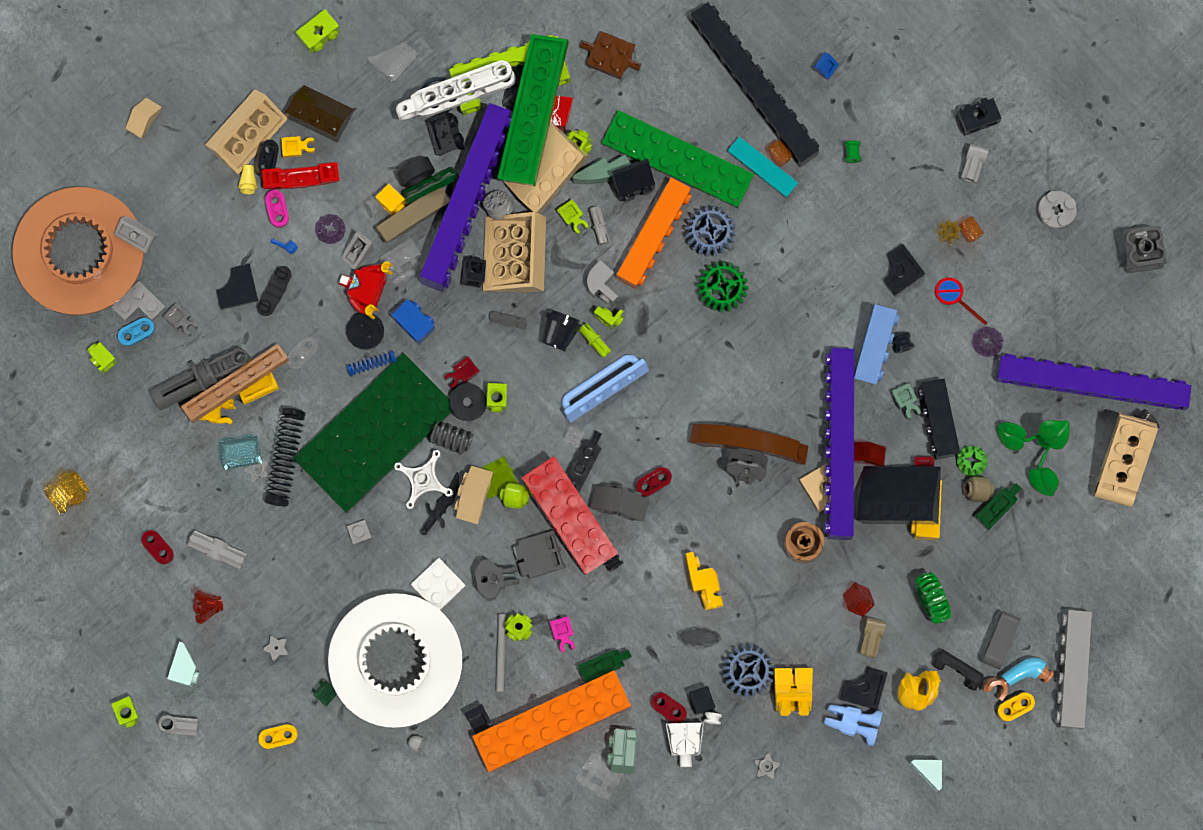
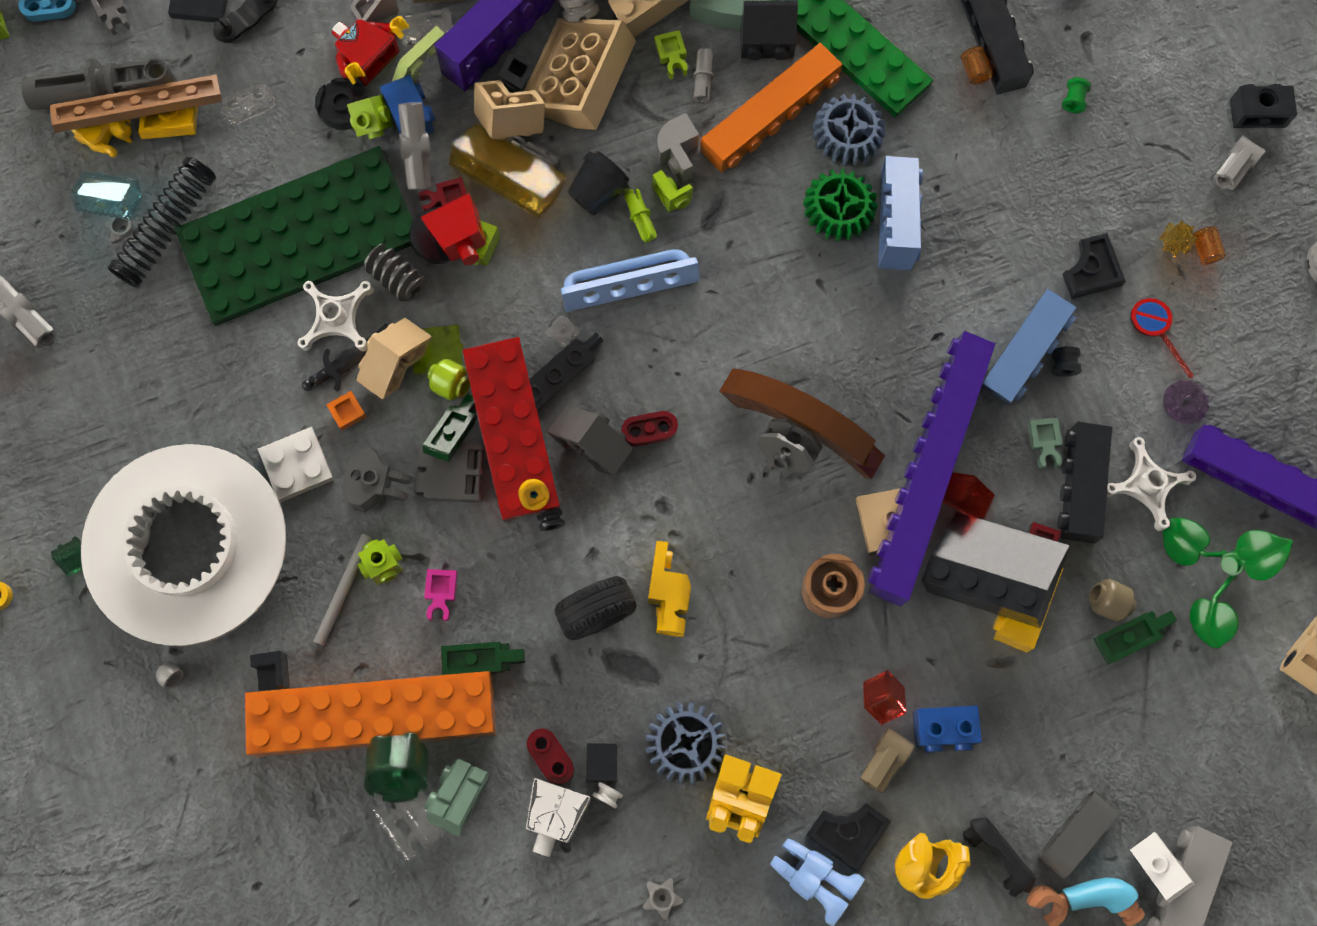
camera: 20 degrees right, 5 degrees down
(271, 648) = (40, 477): light grey plate -> none
(351, 371) = (300, 145): blue piece -> none
(359, 532) = (219, 356): light grey plate -> none
(391, 336) = (370, 116): none -> lime brick
(406, 289) = (413, 59): none -> yellowish green plate
(431, 347) = (414, 145): none -> light grey piece
(456, 539) = (346, 410): none -> orange plate
(482, 303) = (508, 113): none -> tan brick
(484, 397) = (457, 229): none -> red torso
(495, 340) = (507, 170): none -> clear yellow brick
(530, 528) = (451, 430): none -> dark green hinge
(581, 746) = (396, 767): none -> clear green brick
(601, 552) = (533, 494): none -> yellow tile
(664, 609) = (595, 608): none -> black tyre
(762, 167) = (947, 77): teal tile -> none
(763, 278) = (900, 213): none -> wedge
(902, 604) = (947, 727): none -> blue brick
(933, 598) = (999, 734): green gear -> none
(964, 465) = (1101, 560): bright green gear -> none
(980, 405) = (1150, 484): none -> white piece
(1055, 641) = (1162, 867): none -> white plate

